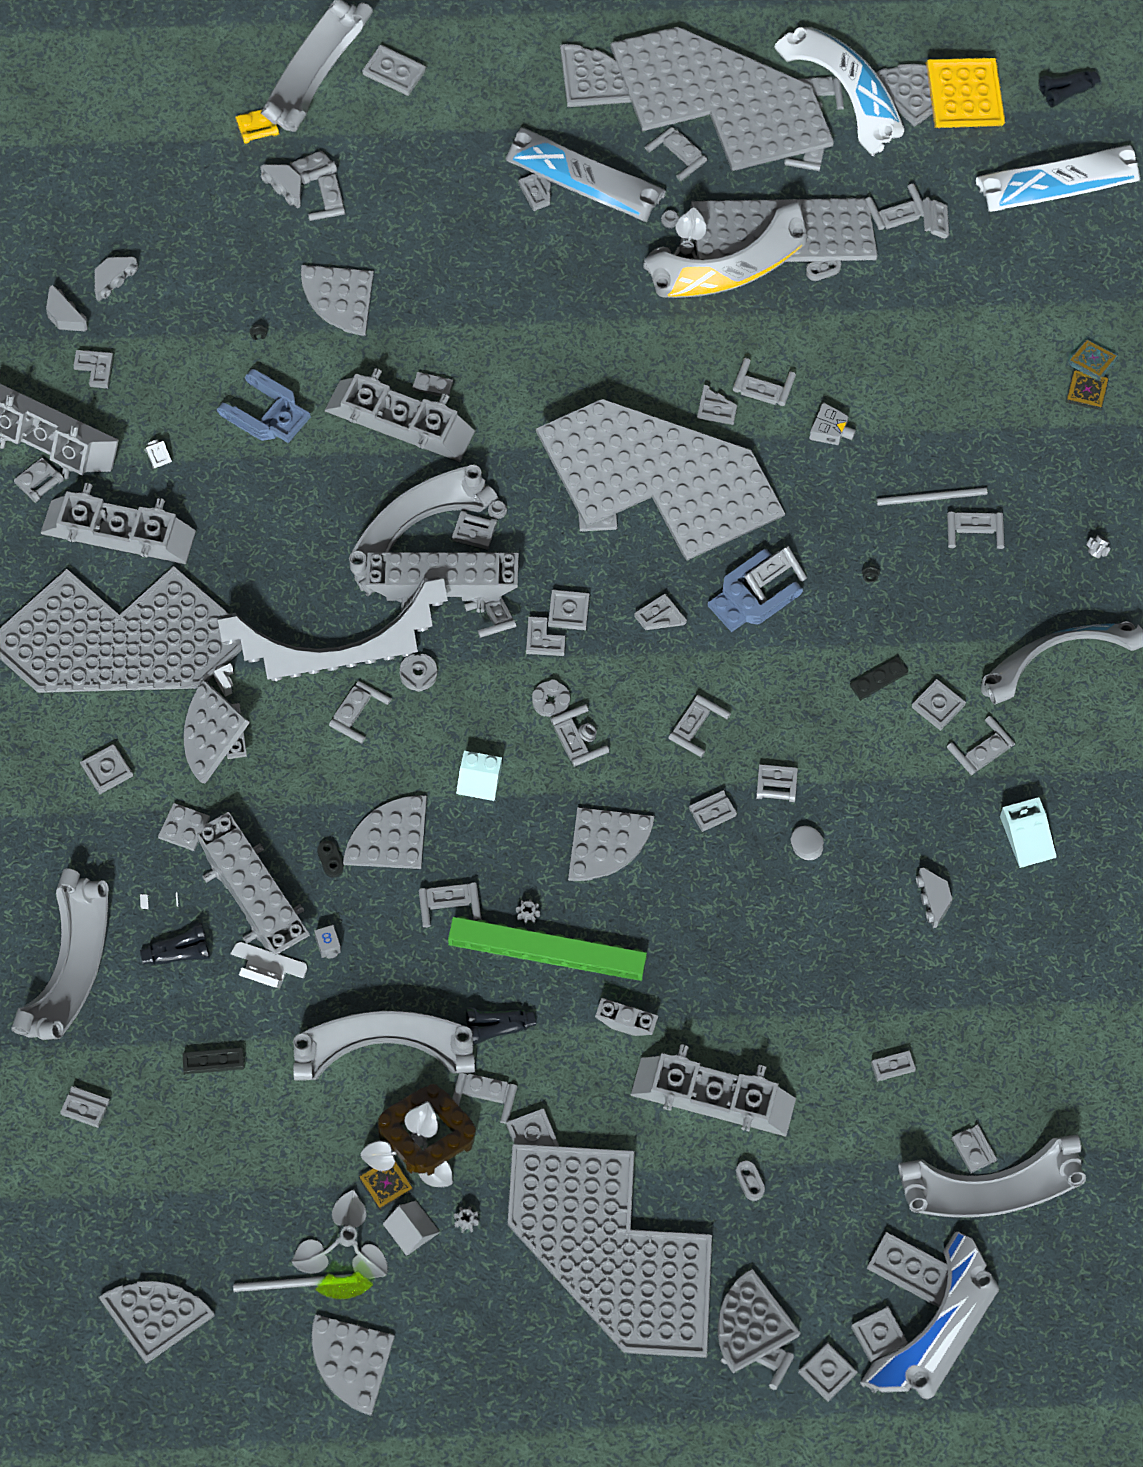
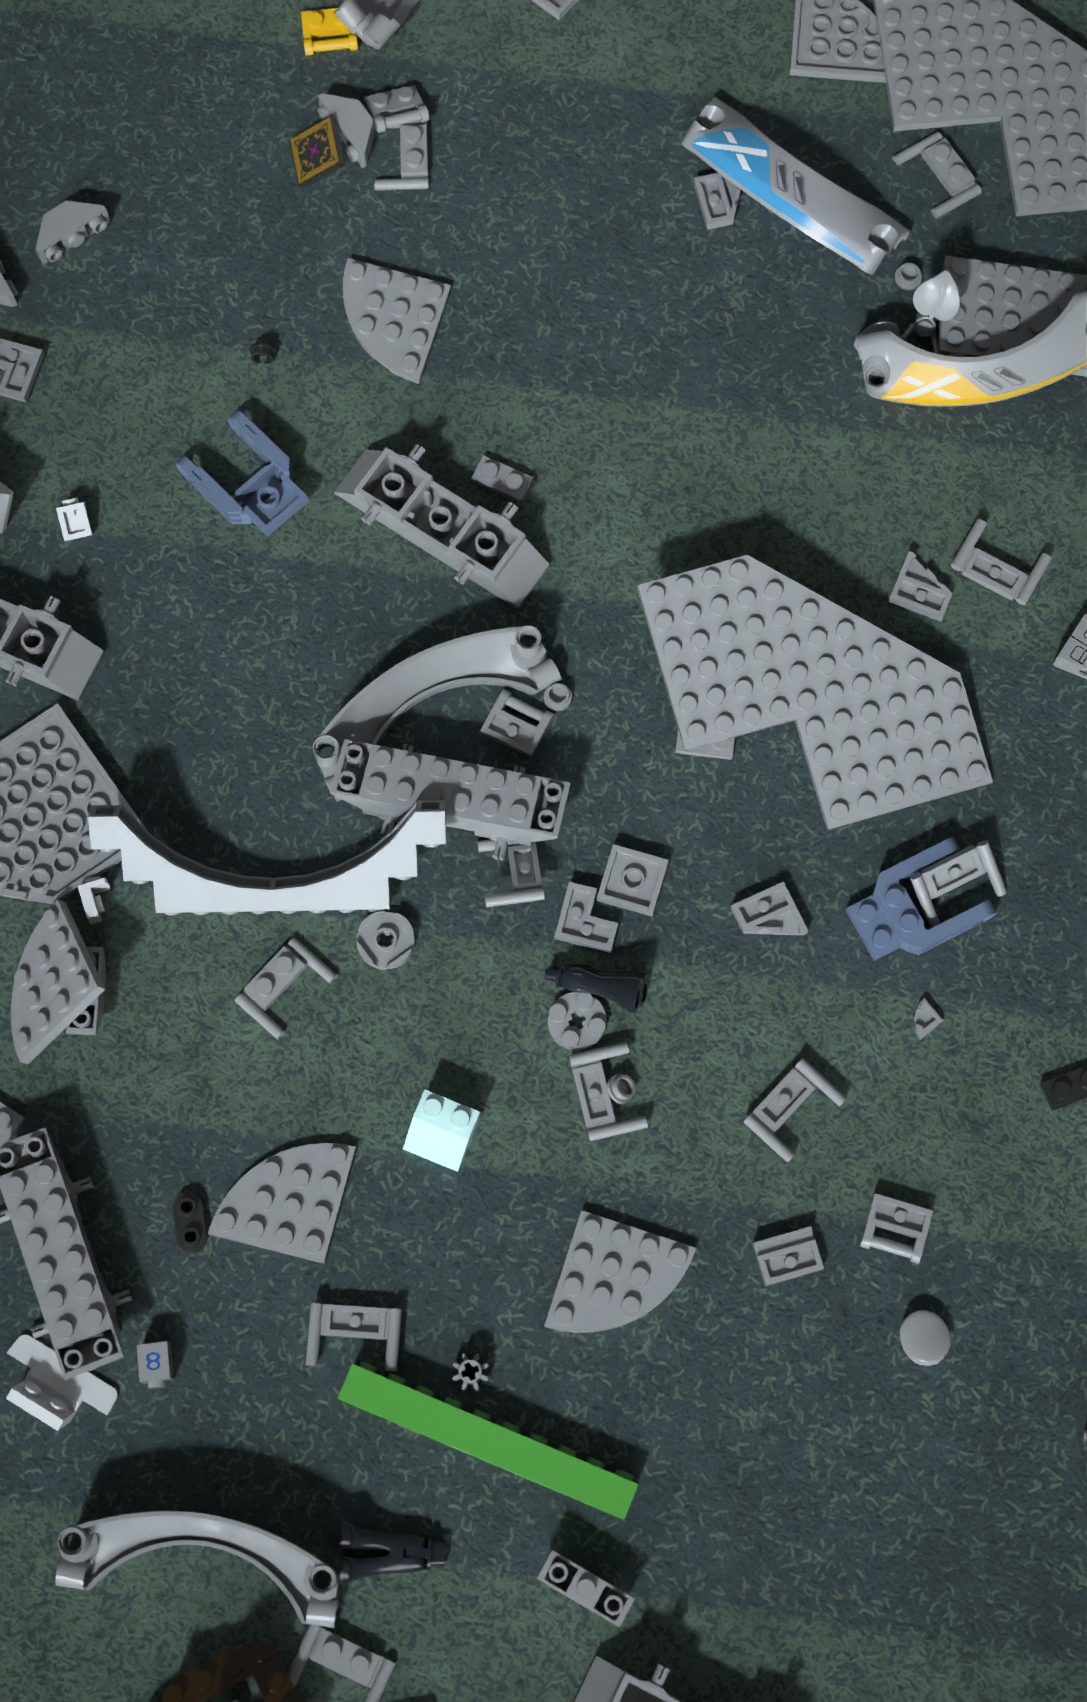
camera: 15 degrees right, 10 degrees up
(267, 202) = (317, 152): none -> clear smoke tile
(577, 671) = (624, 988): none -> black piece
(771, 660) = (926, 1018): none -> light grey tile

